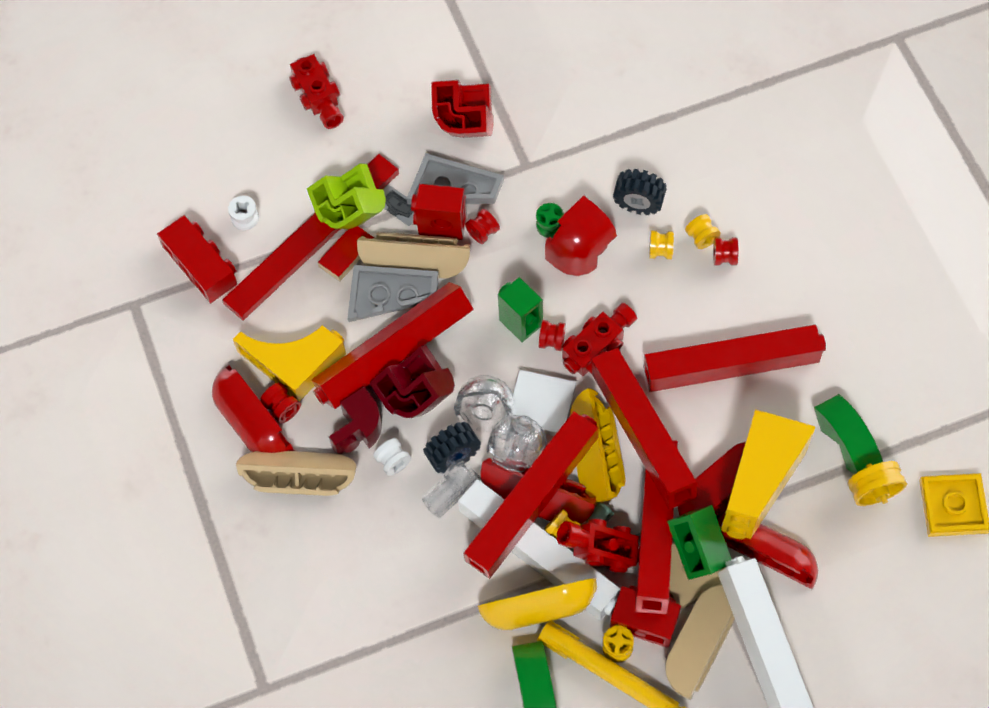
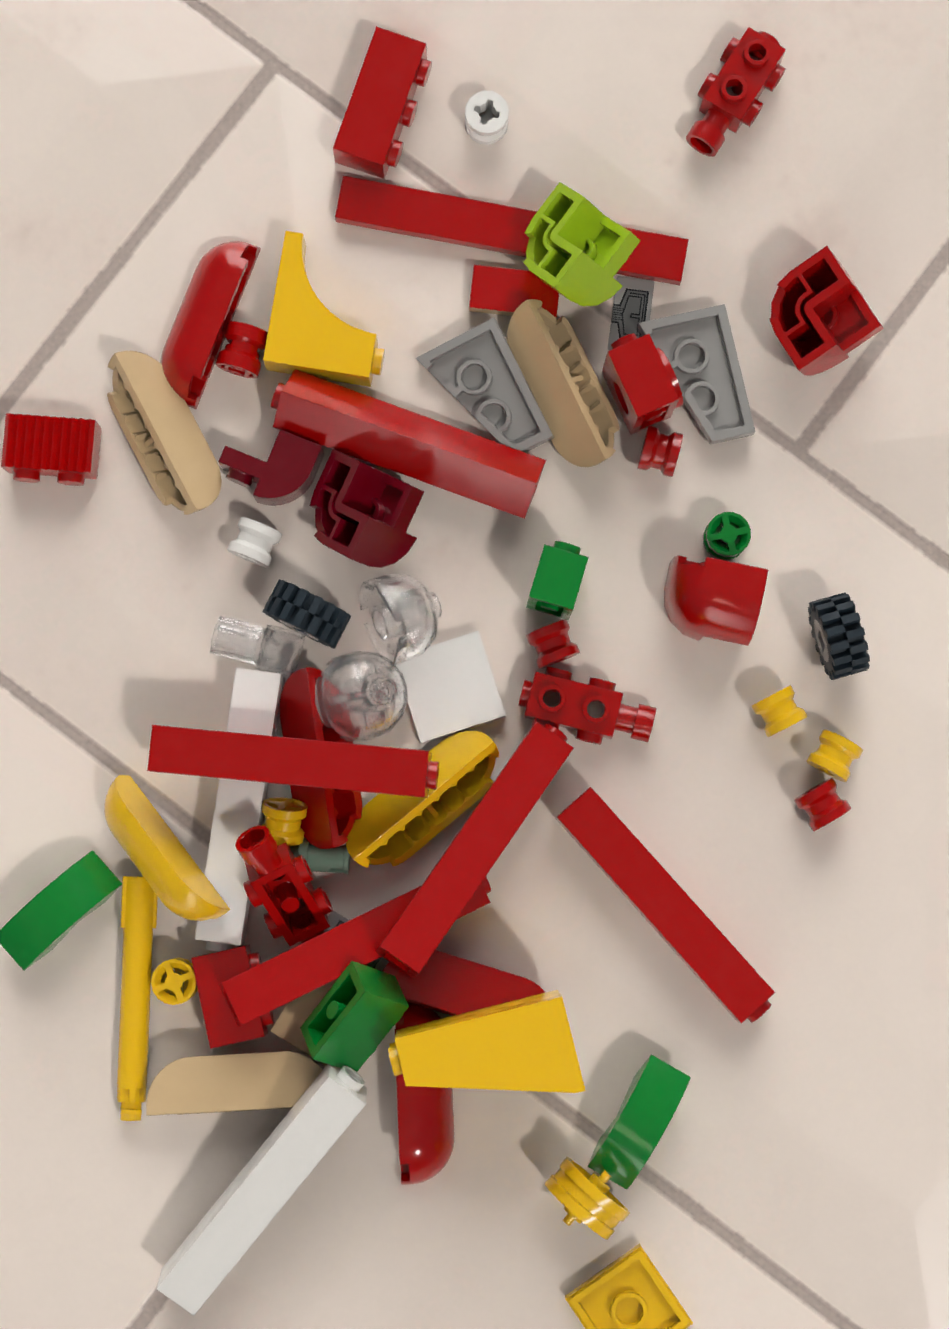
camera: 50 degrees right, 20 degrees up
(263, 536) = (51, 448): none -> red brick

